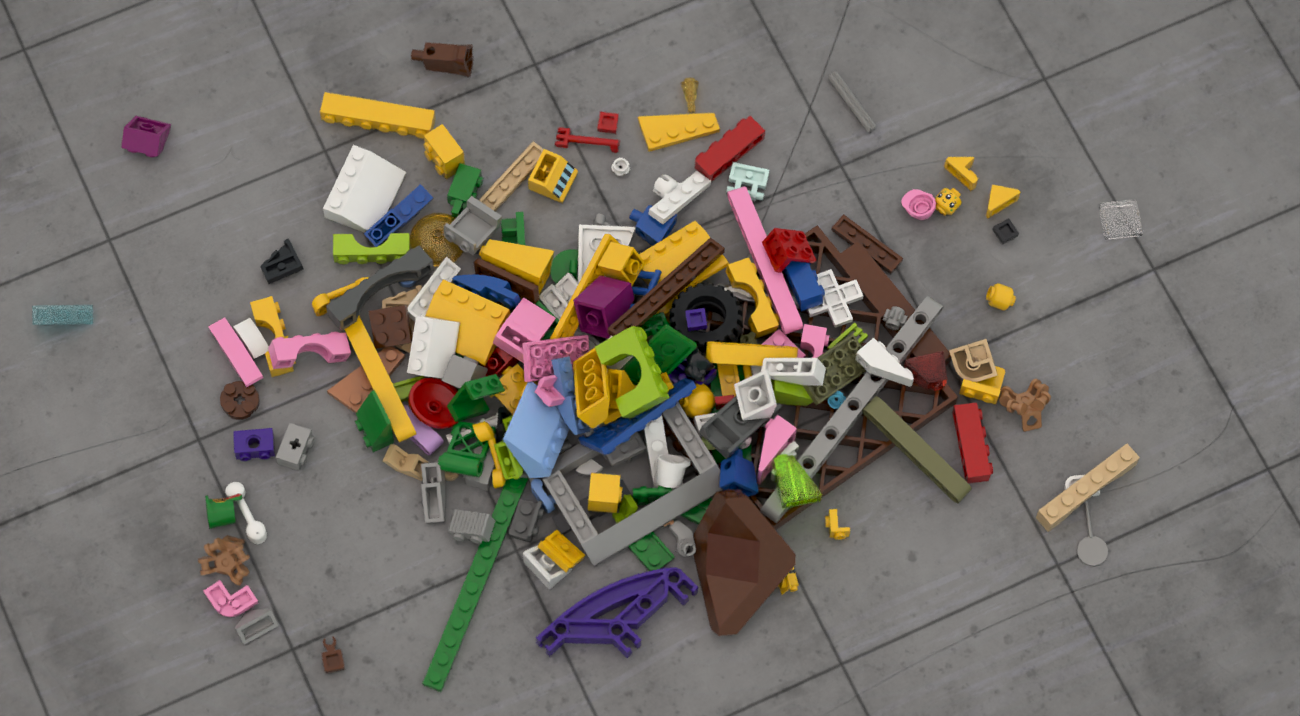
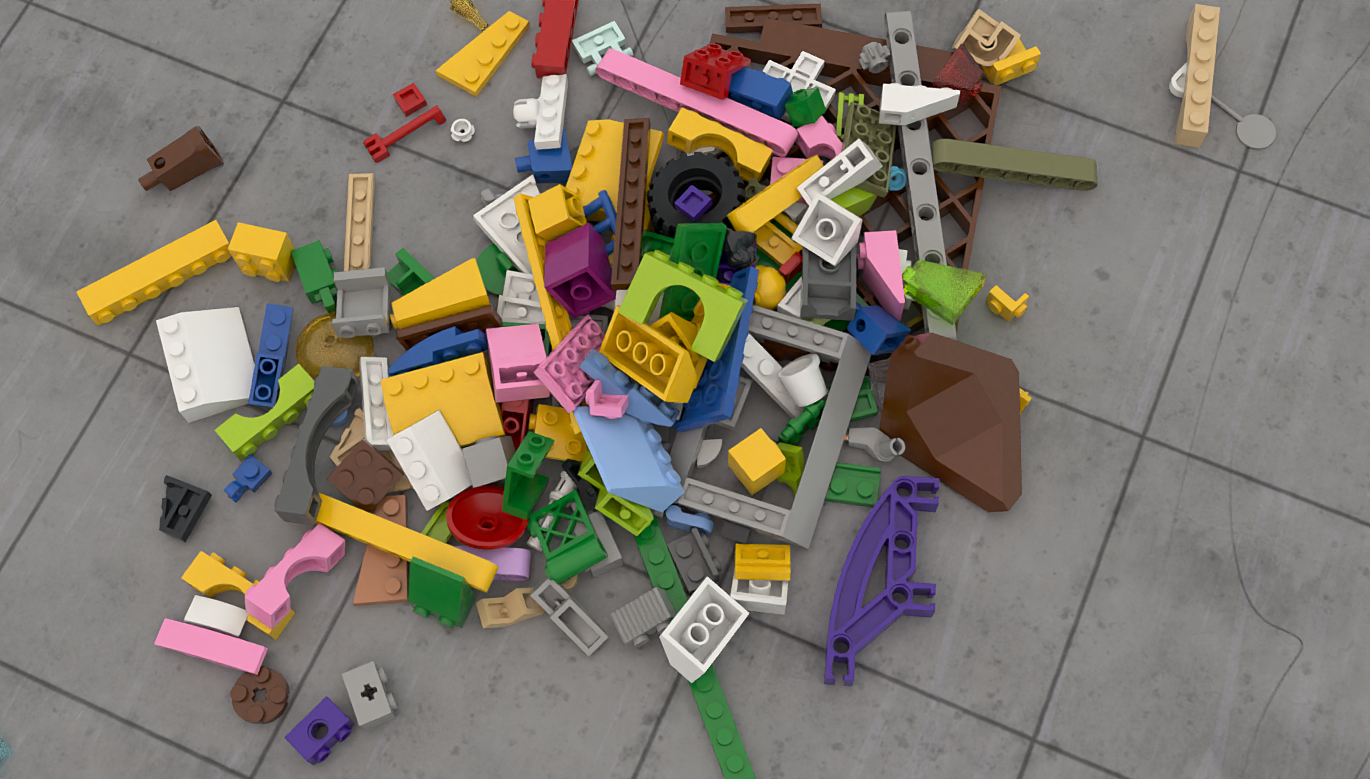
camera: 35 degrees left, 0 degrees up
(322, 300) = (263, 511): yellow piece -> none
(332, 275) = (249, 475): none -> blue plate
(485, 433) = (574, 503): yellow piece -> none
(492, 555) = (701, 629): none -> white slope
(552, 176) = (401, 191): yellow slope -> none
(821, 314) = (805, 106): none -> green brick
(971, 443) = (1052, 120): red brick -> none
(1026, 403) = (1072, 41): medium nougat piece -> none

